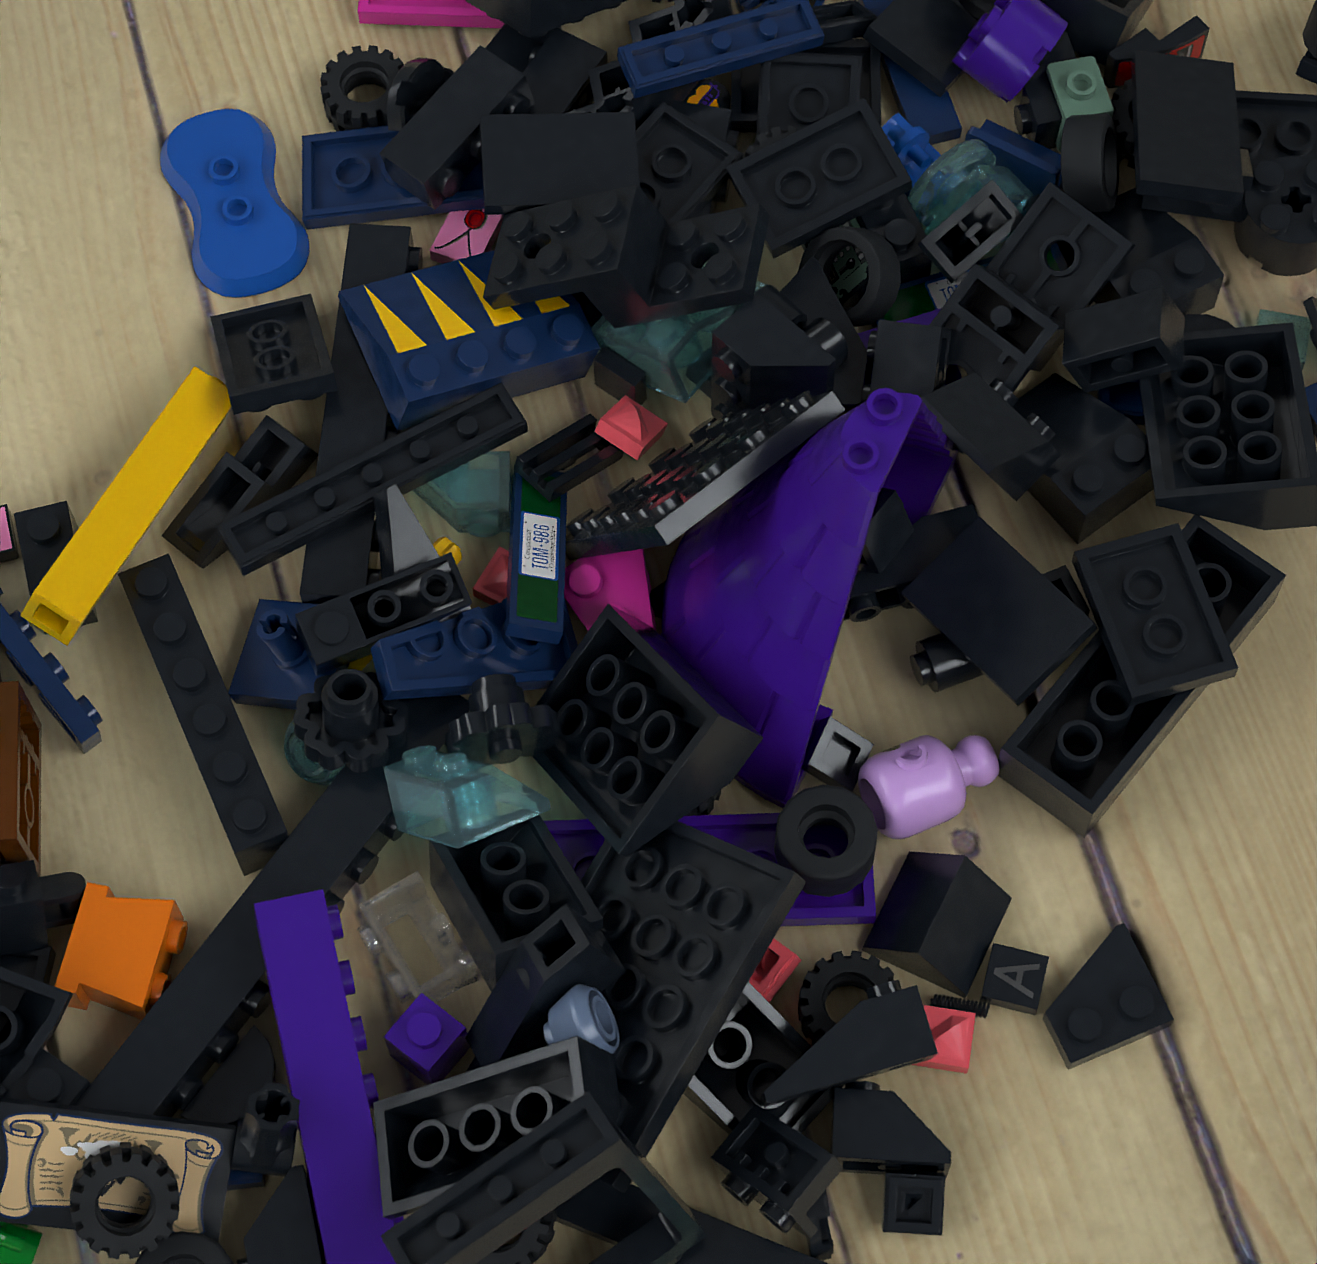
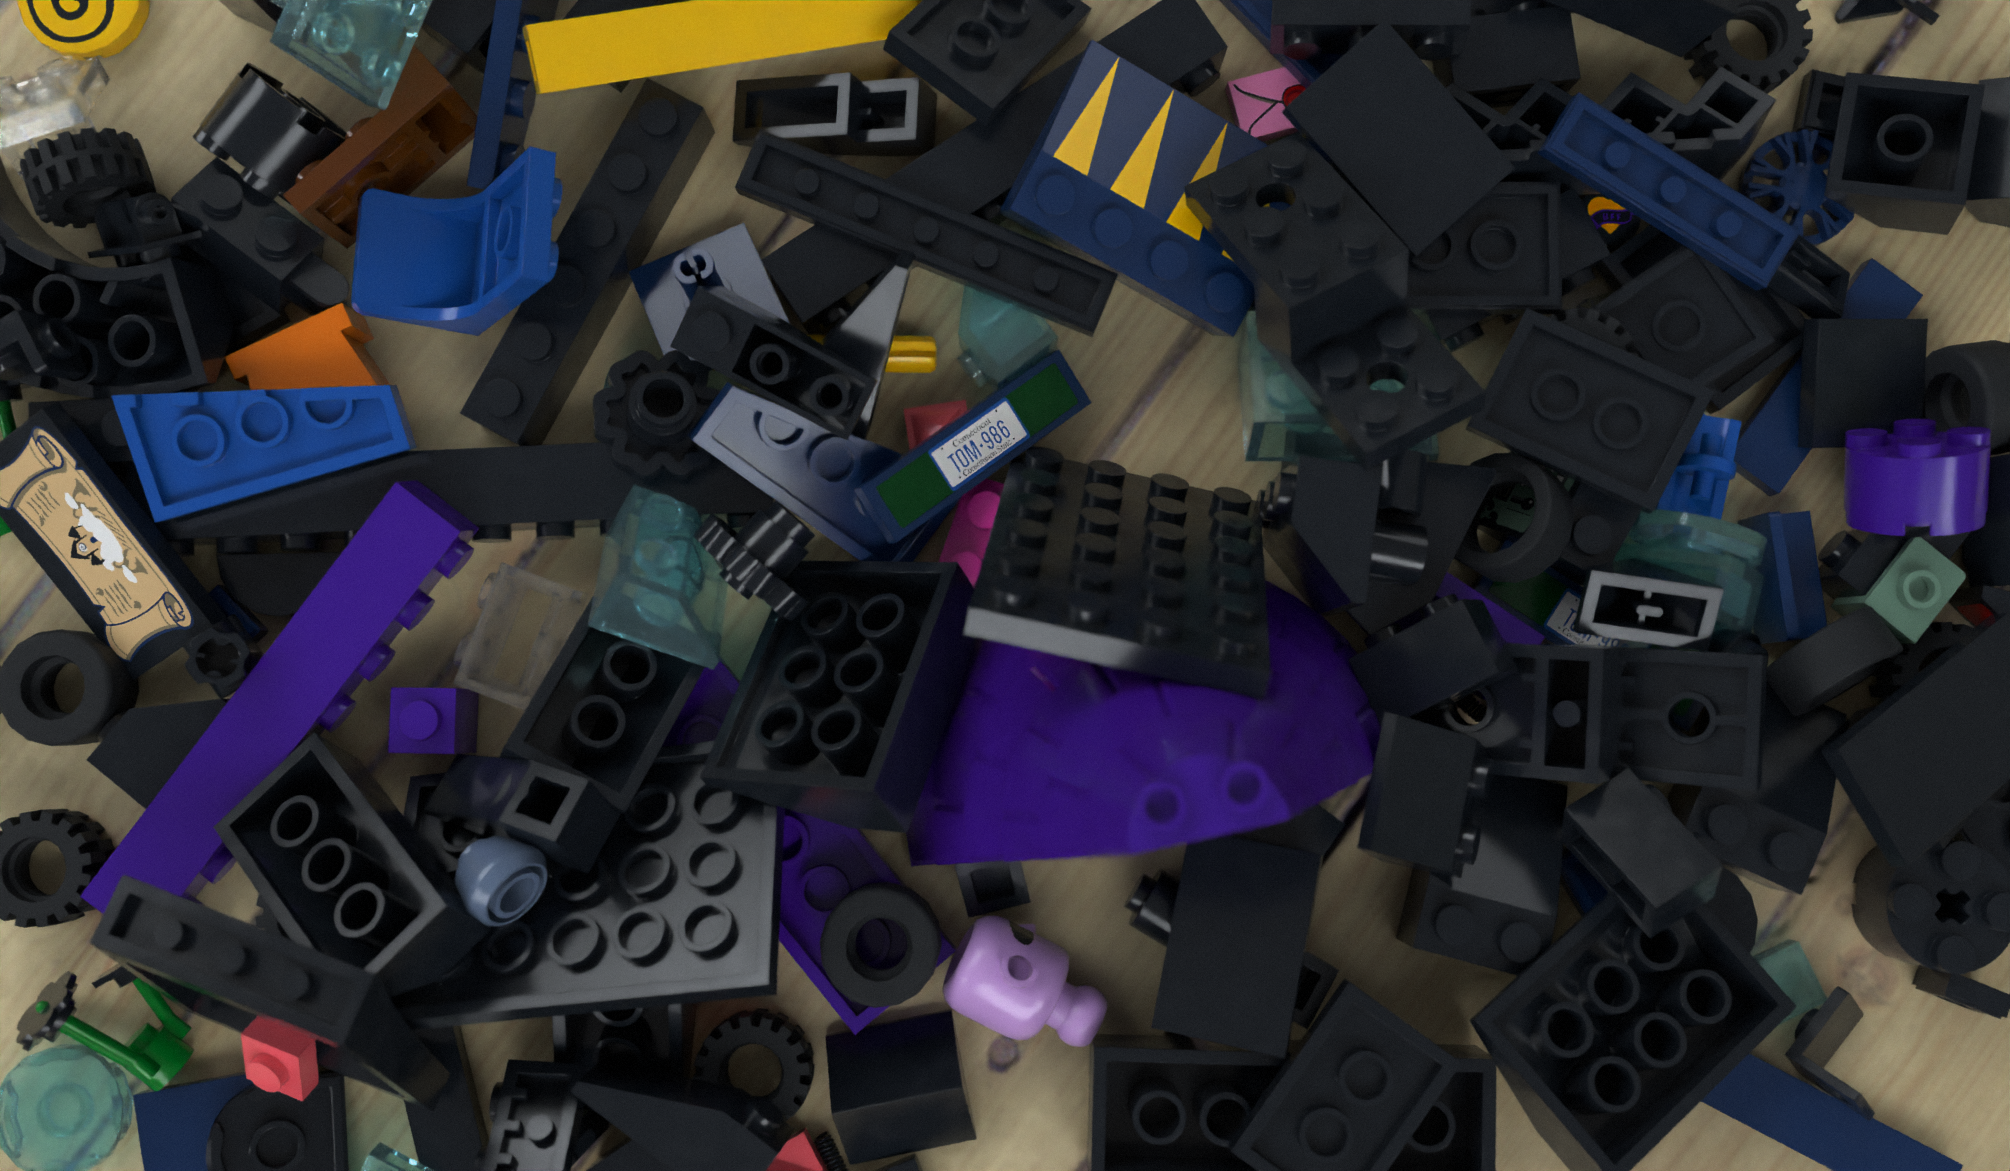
camera: 50 degrees right, 20 degrees up
(124, 1237) = (48, 601): black tyre -> none
(126, 1012) = (242, 443): none -> blue wing
(141, 762) = (458, 258): none -> blue bracket
(562, 452) = (1152, 401): black tile -> none
(619, 376) = (1228, 374): black tile -> none
(631, 427) = (1184, 425): coral tile -> none

